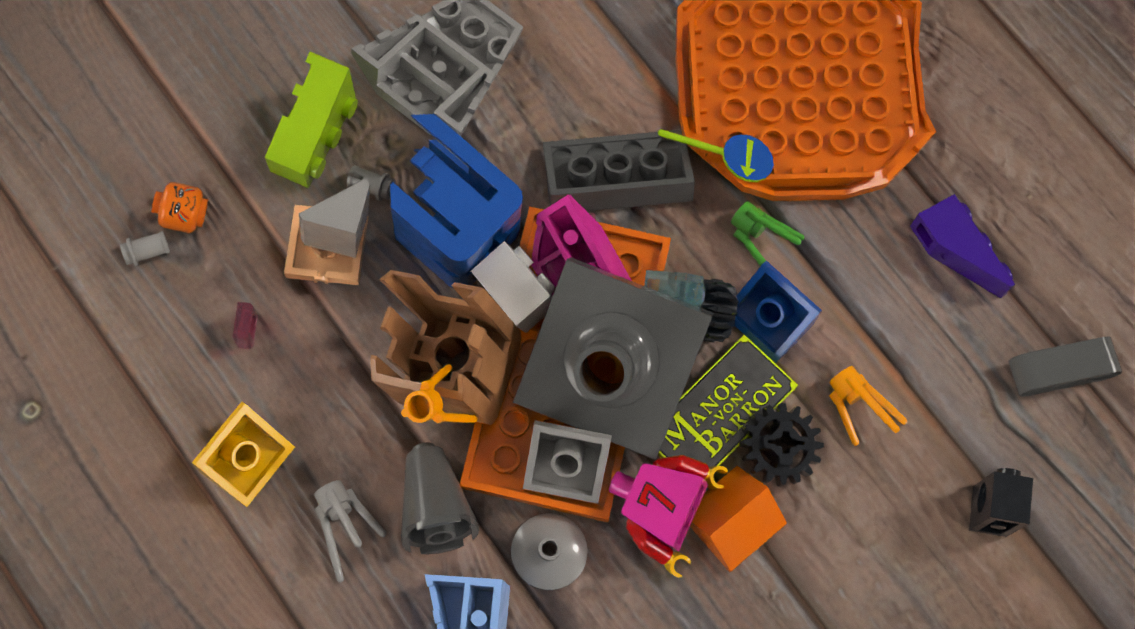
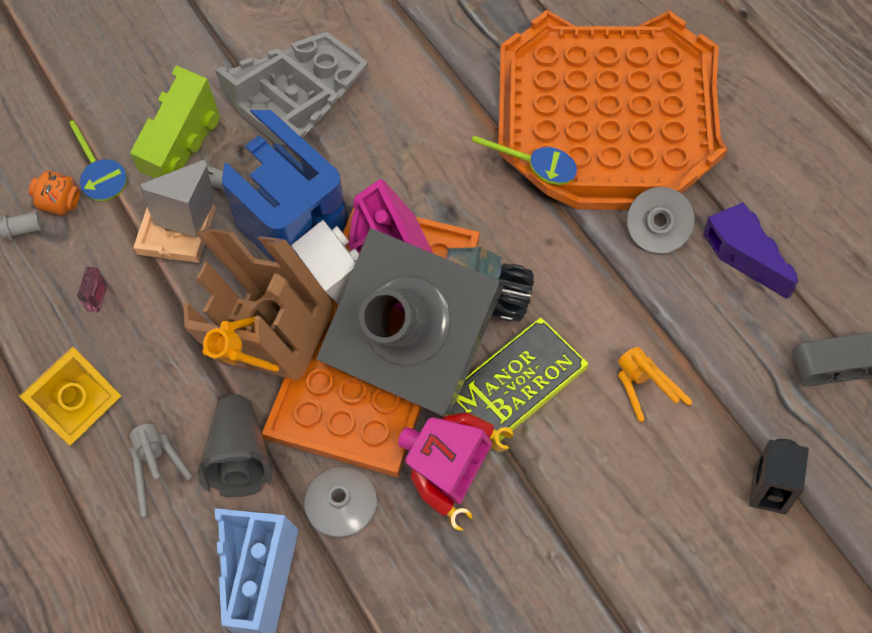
camera: 15 degrees right, 10 degrees down
(230, 183) = (102, 178): none -> blue piece
(566, 461) = (361, 413): light grey slope -> none
(619, 171) = (443, 177): dark grey slope -> none
(737, 518) = (521, 481): orange slope -> none
(753, 221) = (557, 223): bright green plant -> none
(774, 312) = (569, 297): blue slope -> none
(783, 429) = (581, 413): black gear -> none
(867, 232) = (677, 226): none -> light grey dish

